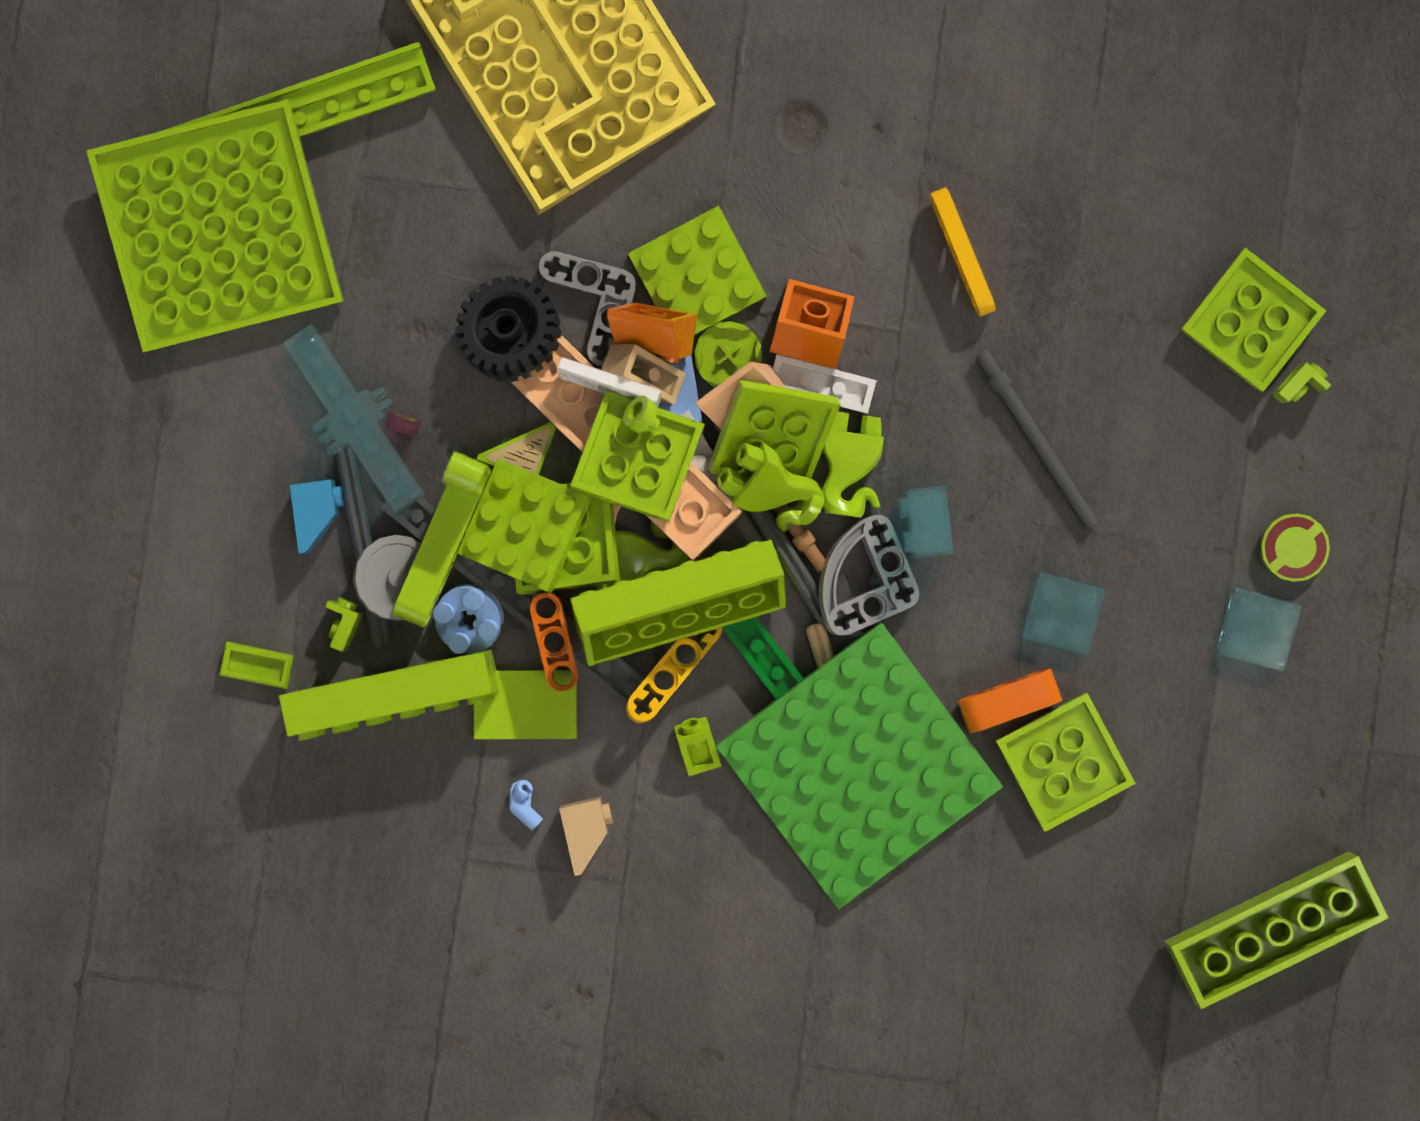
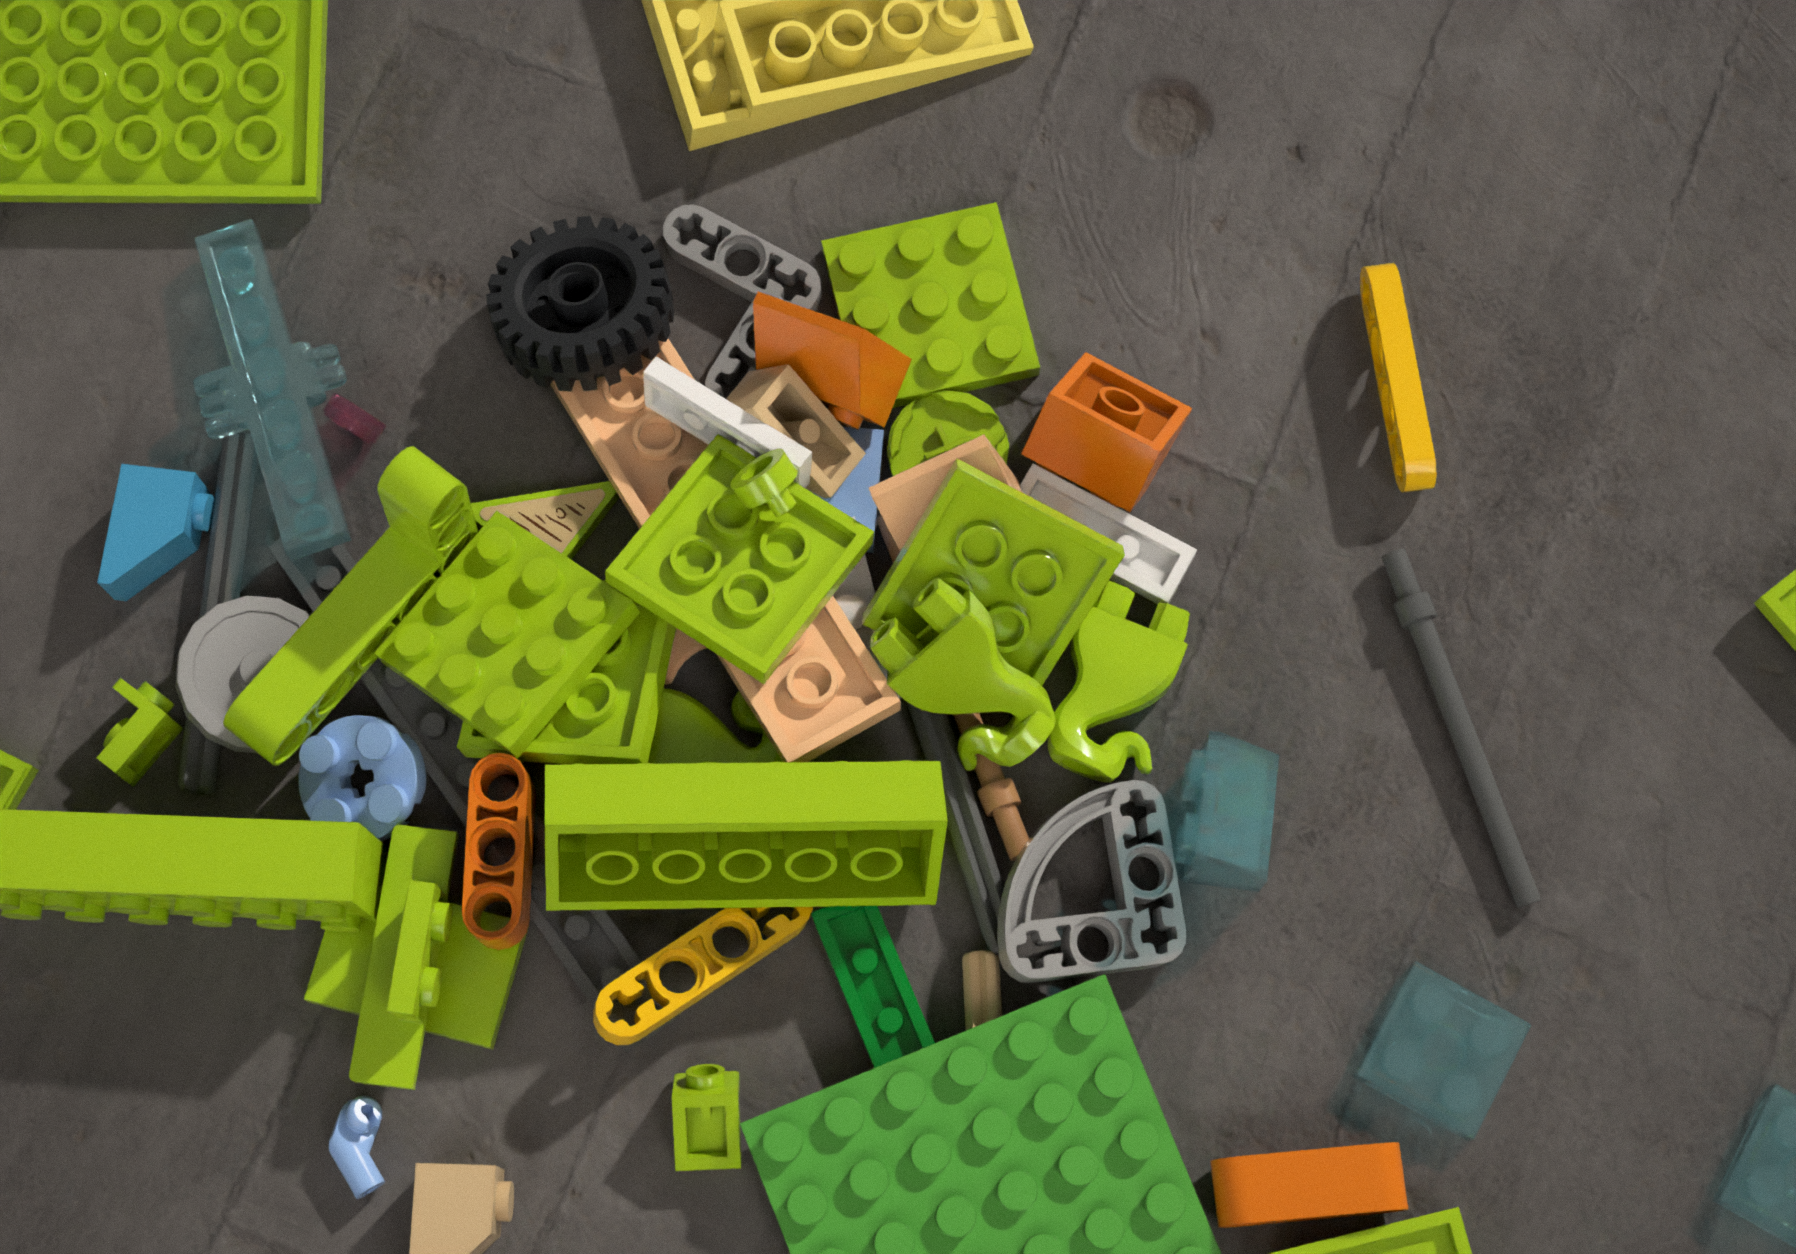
camera: 15 degrees right, 15 degrees down
(520, 707) = (404, 957): none -> lime bracket

